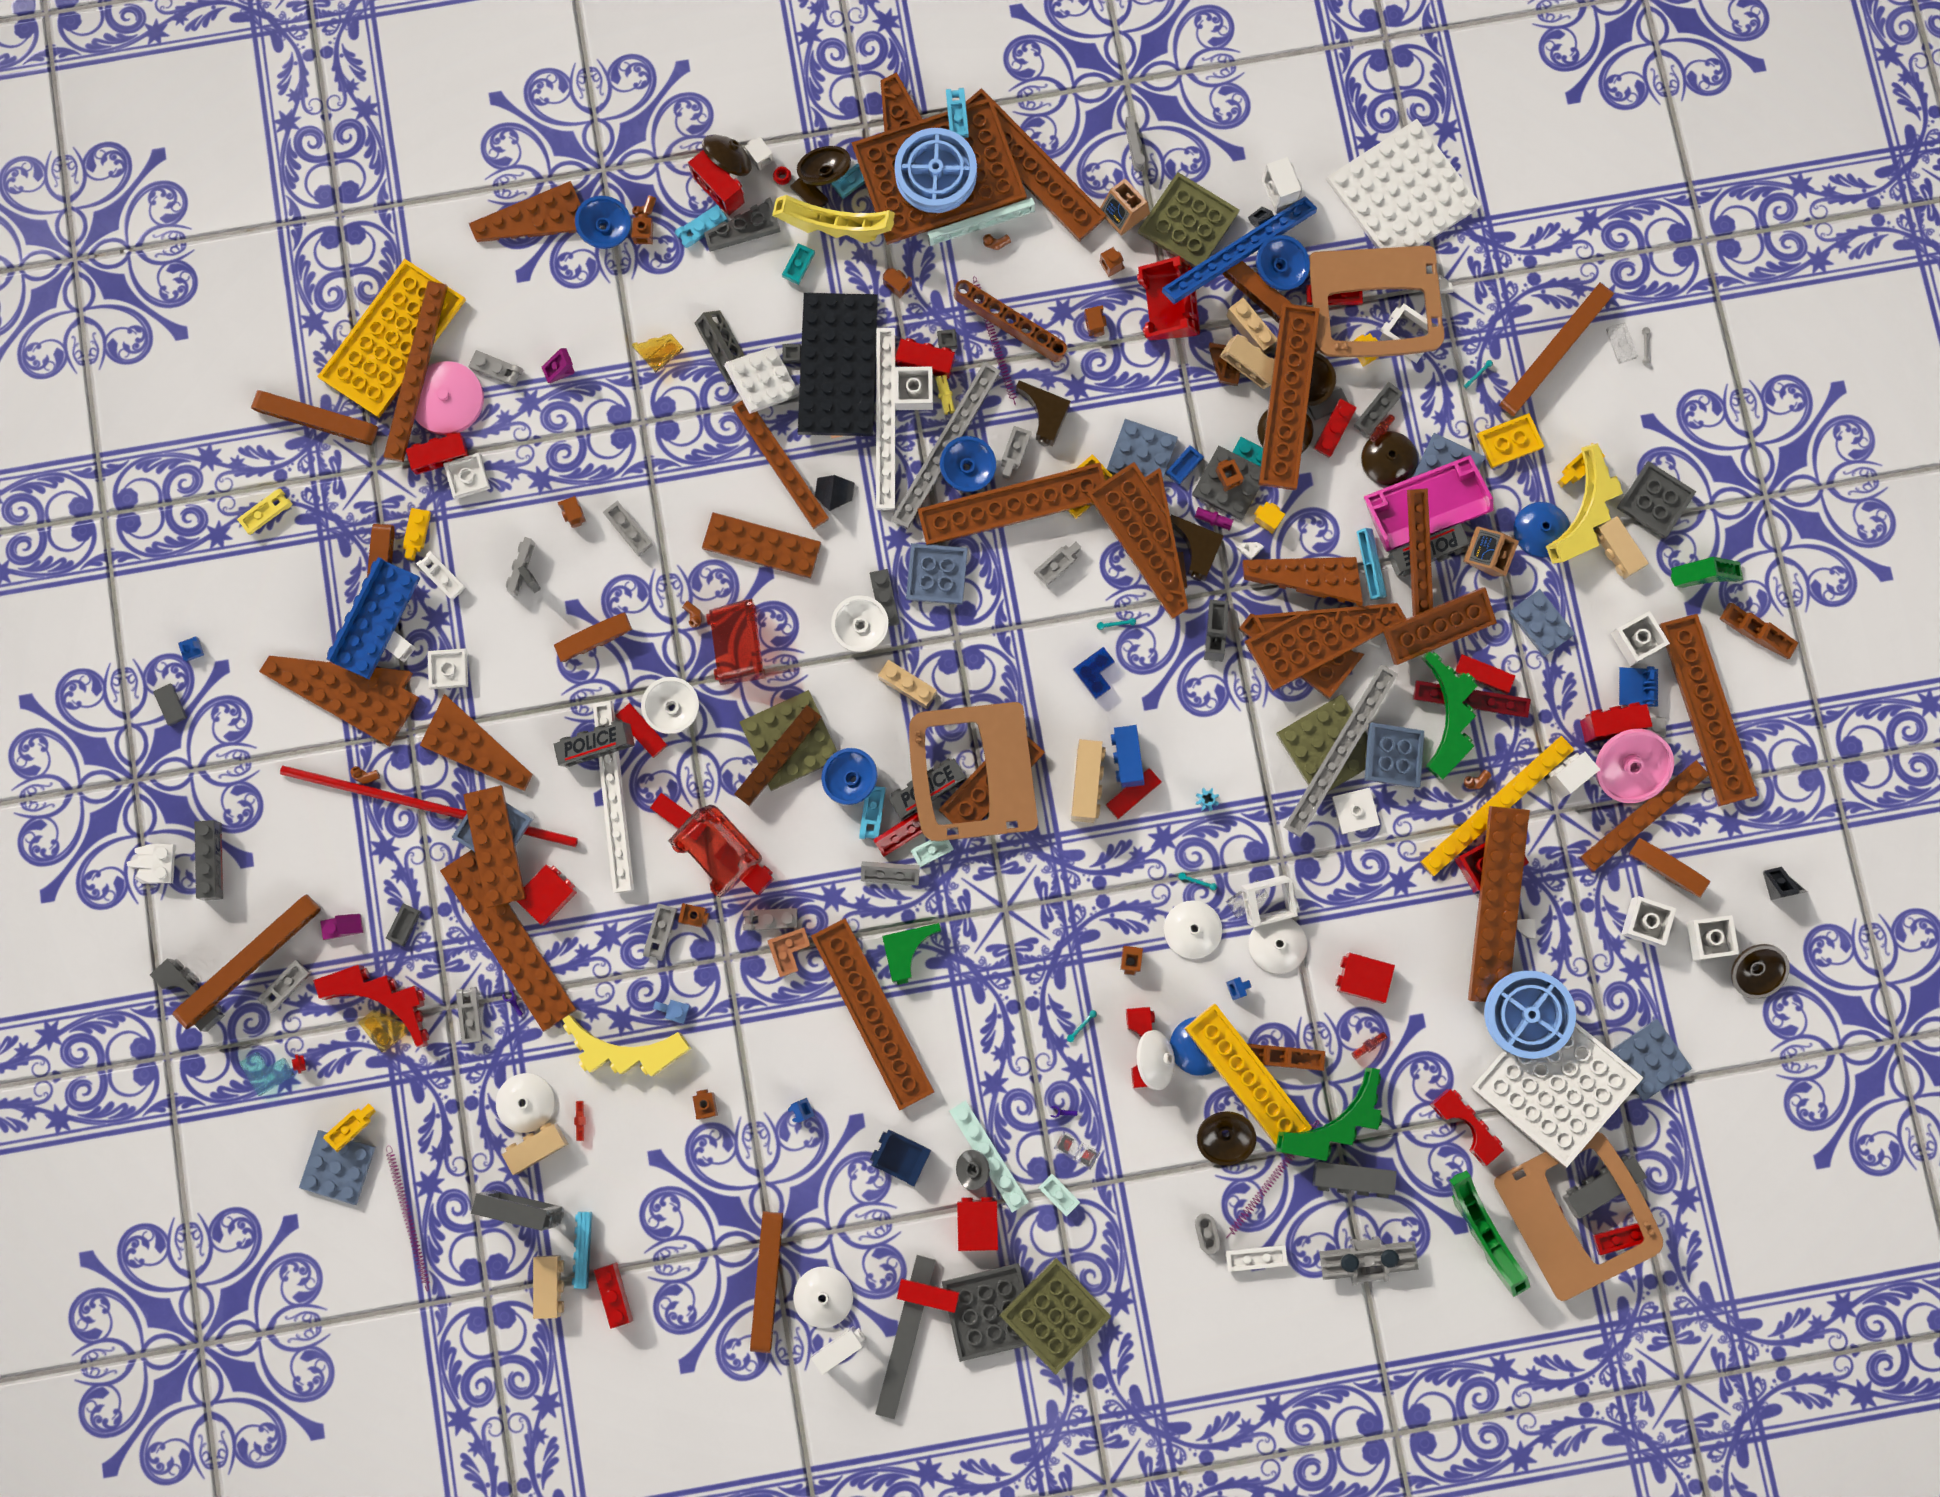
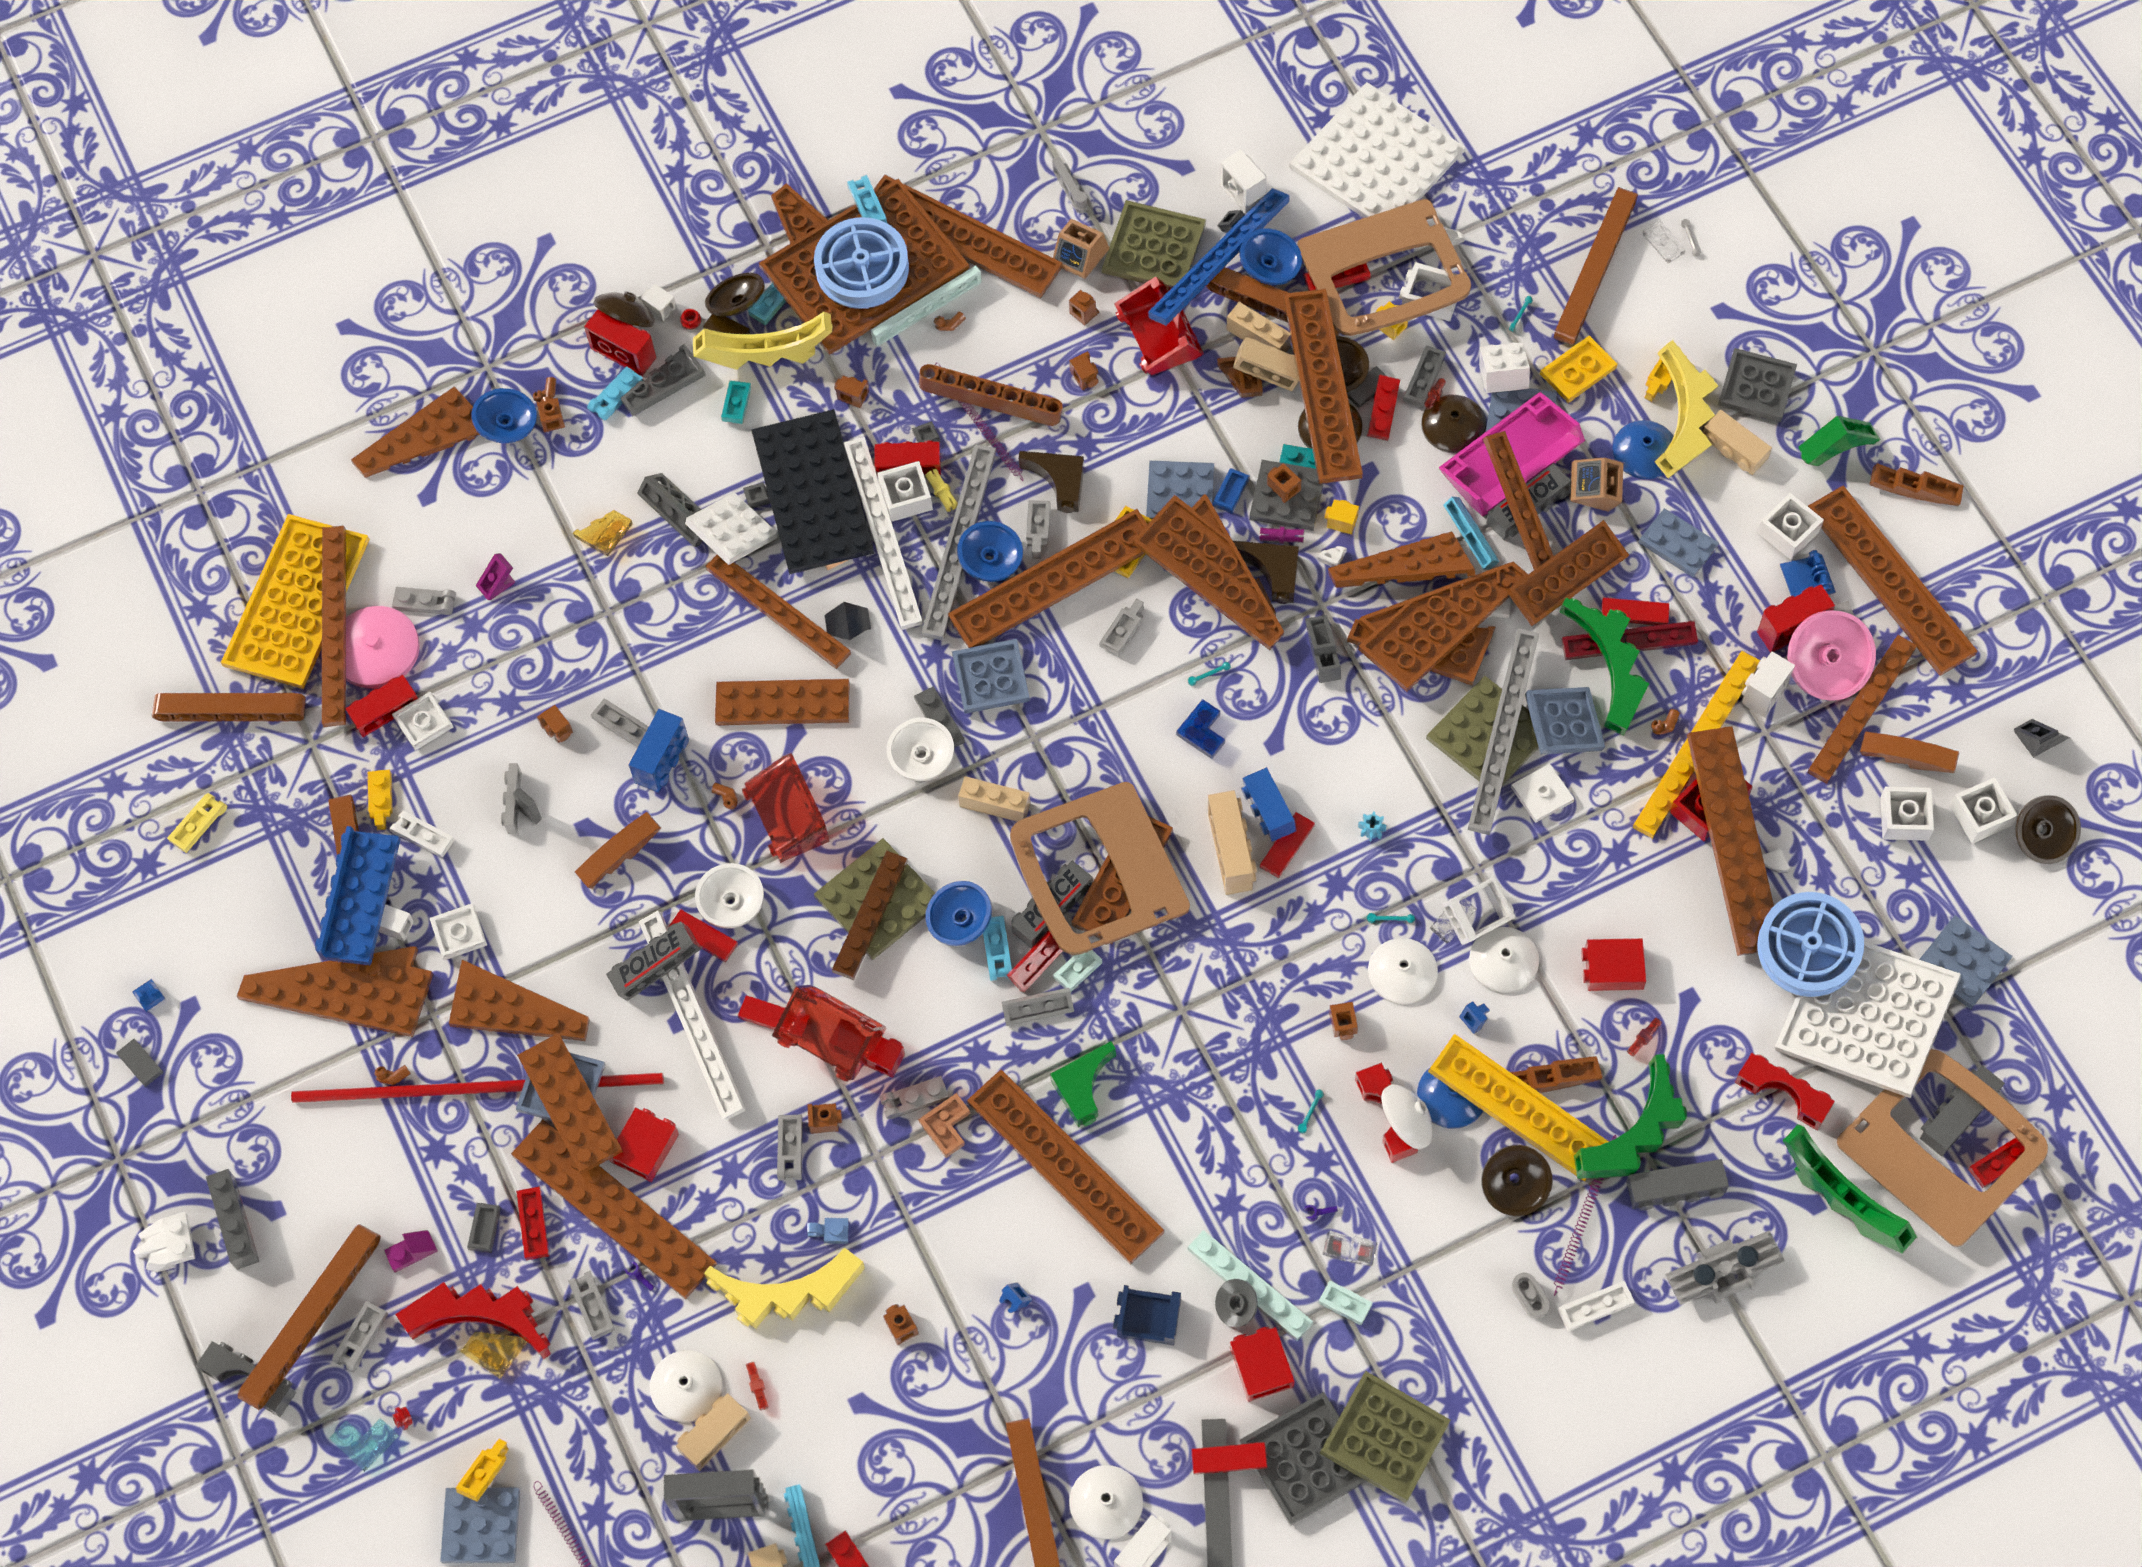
camera: 15 degrees left, 15 degrees down
(441, 934) = (532, 1223): none -> red plate
(648, 562) = (659, 751): none -> blue brick
(1447, 423) = (1504, 367): none -> white brick

